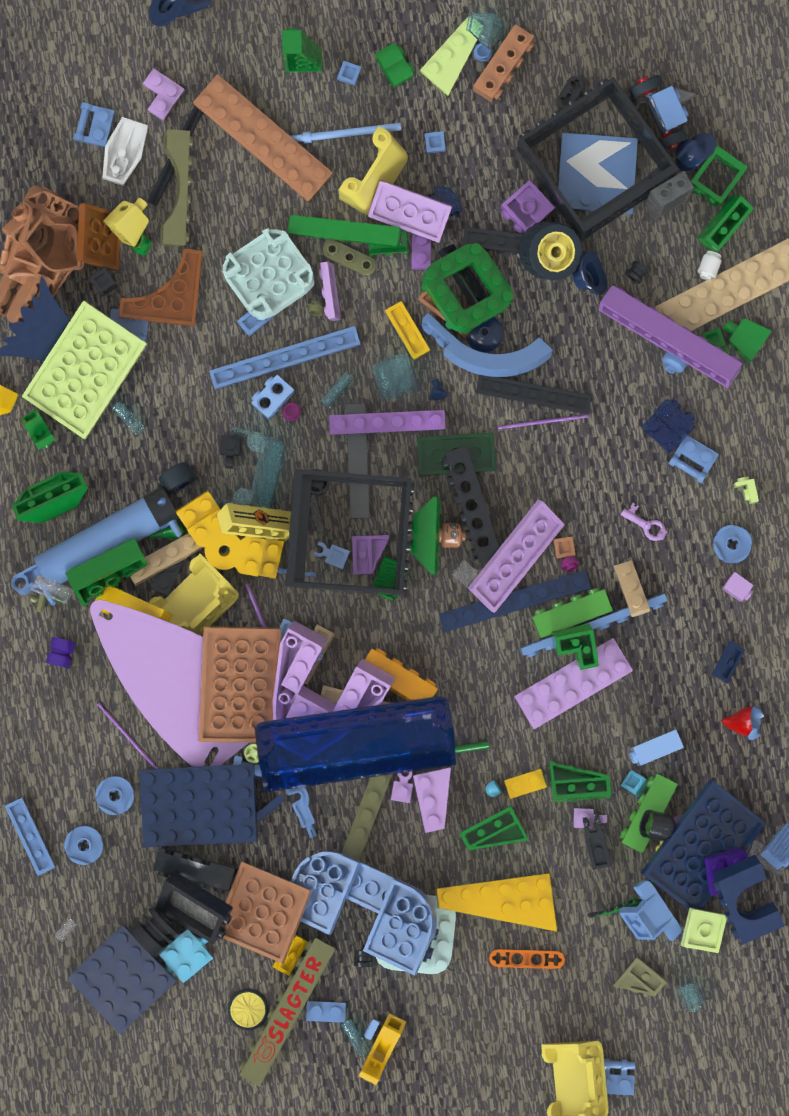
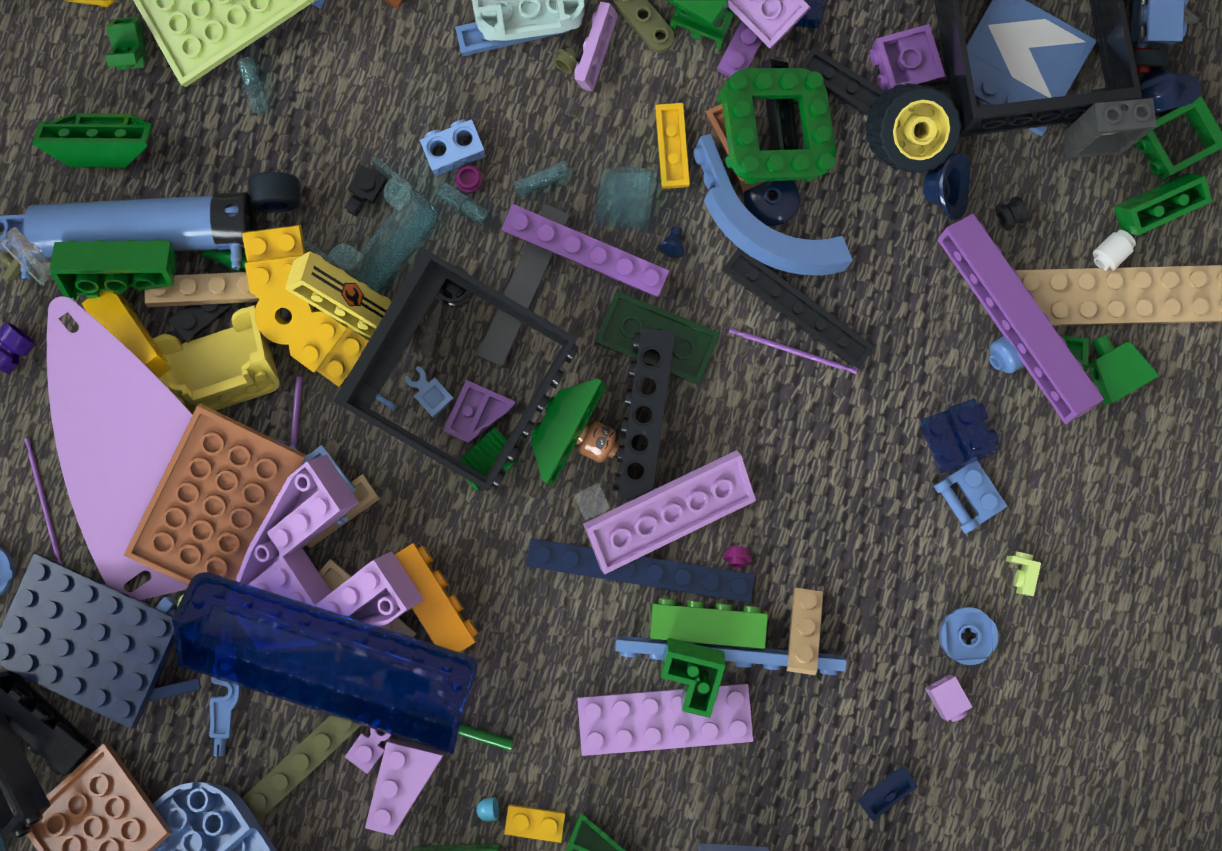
camera: 25 degrees right, 0 degrees up
(284, 357) = (494, 104): medium blue plate -> none
(295, 428) = (462, 203): none -> clear light blue axle
(564, 547) = (740, 531): nougat plate -> none
(646, 525) = (849, 530): lavender piece -> none

